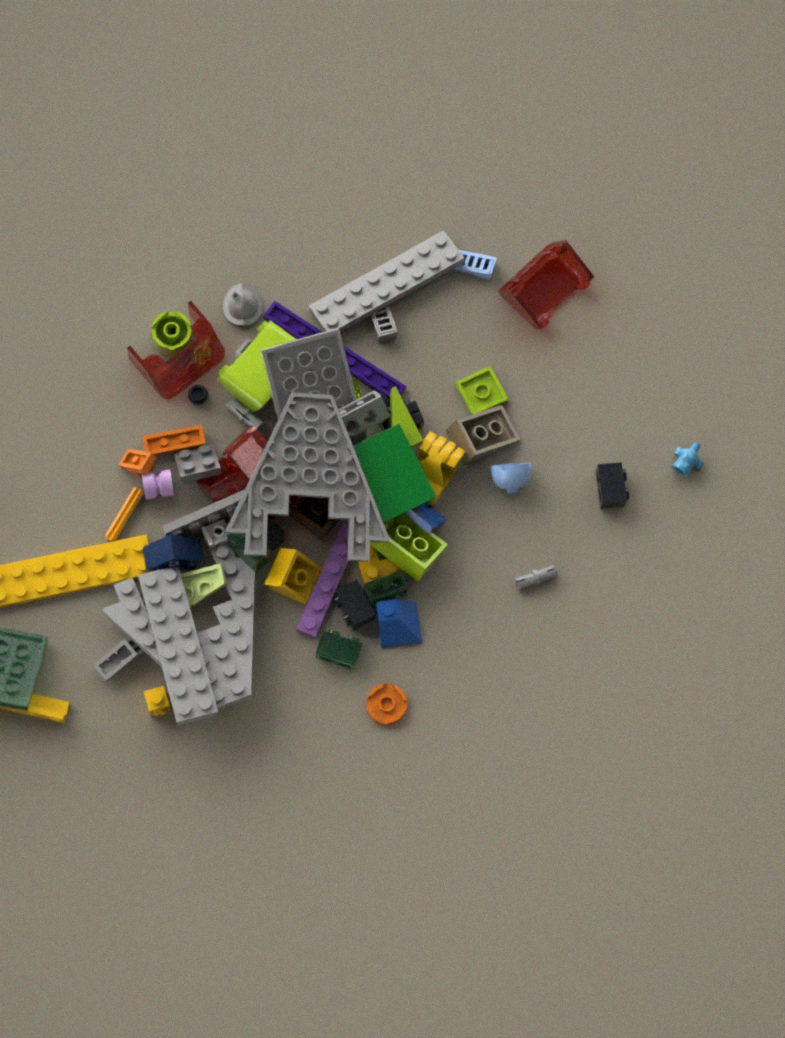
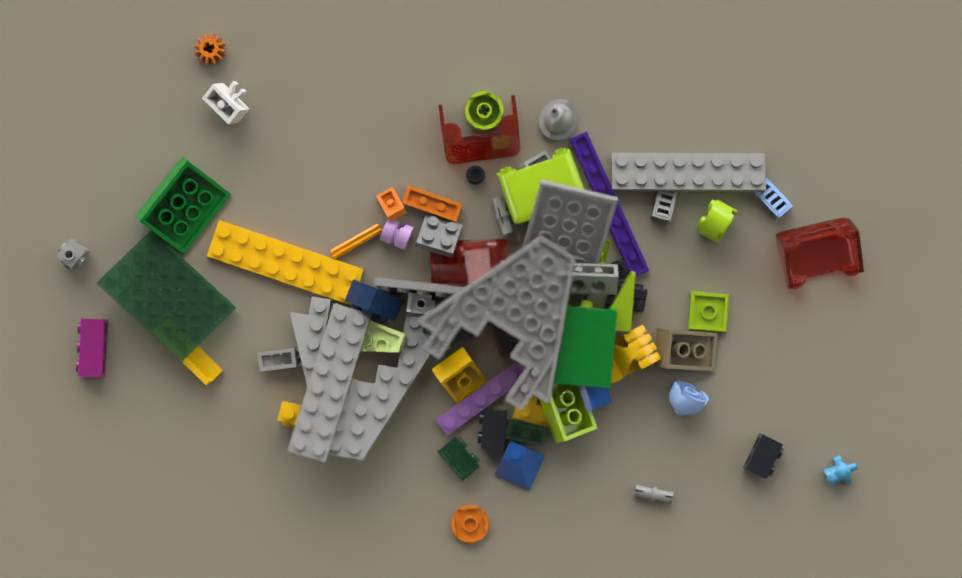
camera: 40 degrees right, 15 degrees up
(438, 307) = (717, 220): none -> lime brick

